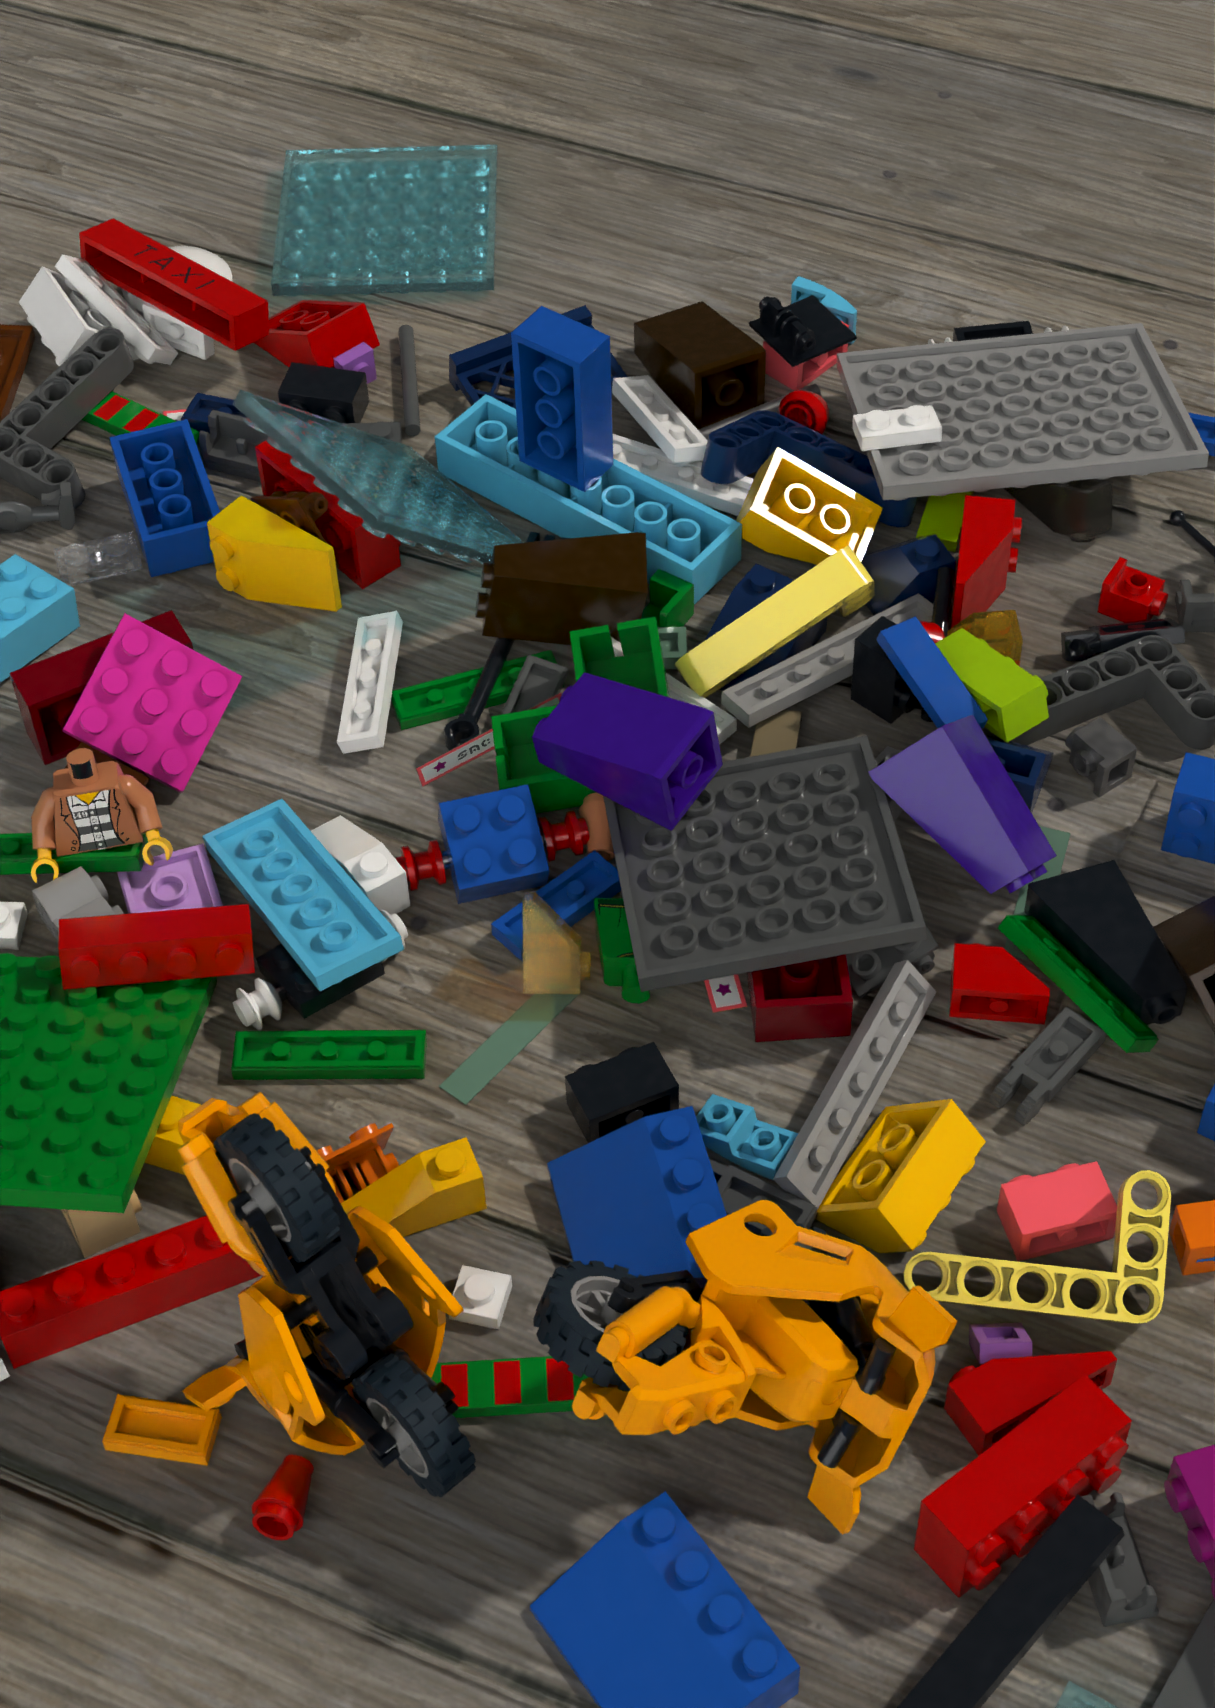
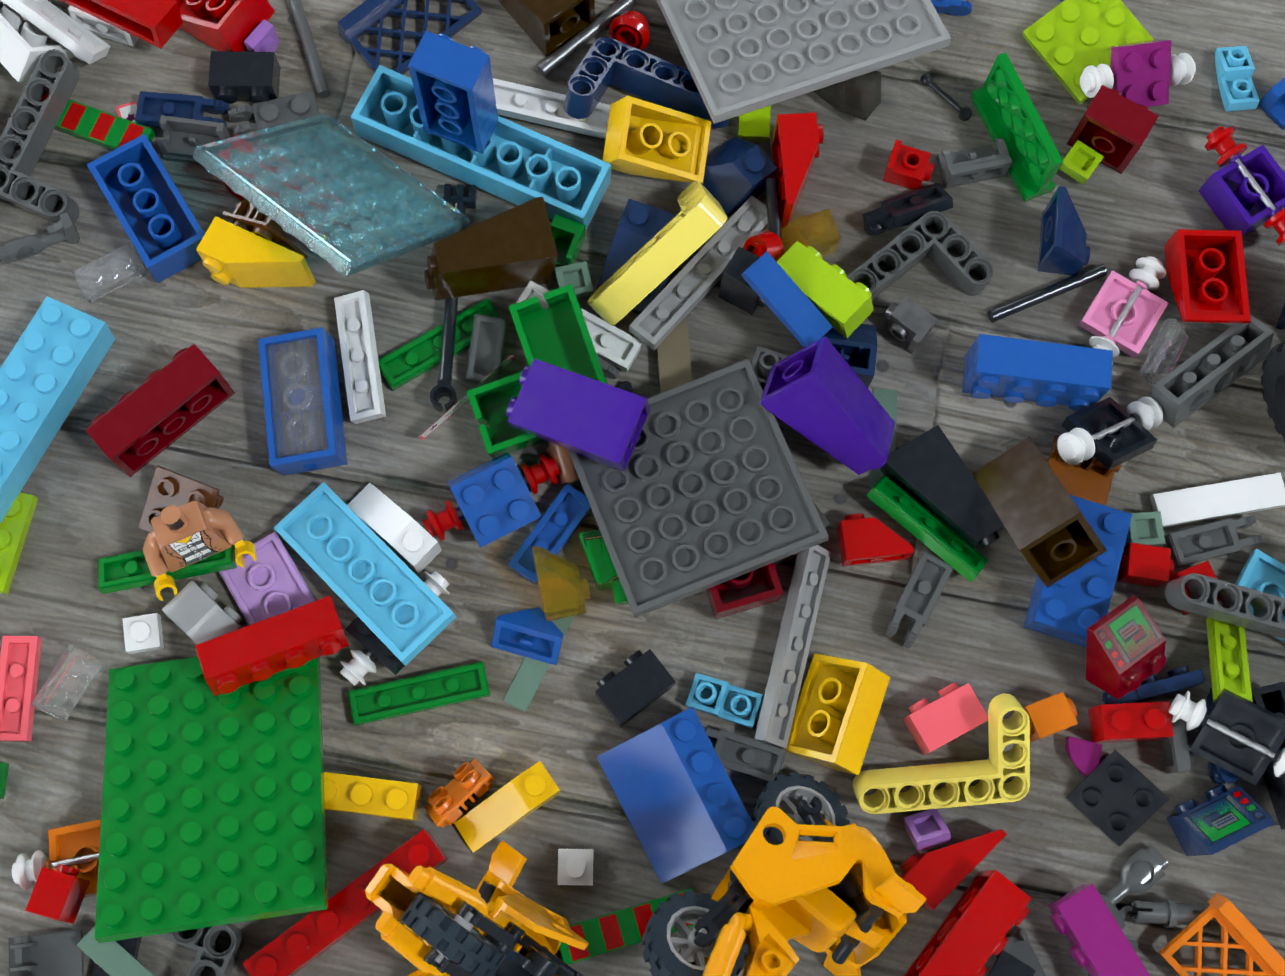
camera: 20 degrees left, 25 degrees up
(152, 703) = (203, 428): dark pink plate -> none
(283, 711) = (302, 401): none -> brick
(493, 1013) = (528, 635): none -> blue slope
(660, 418) = (520, 56): white plate -> none
(897, 427) = (712, 52): white plate -> none

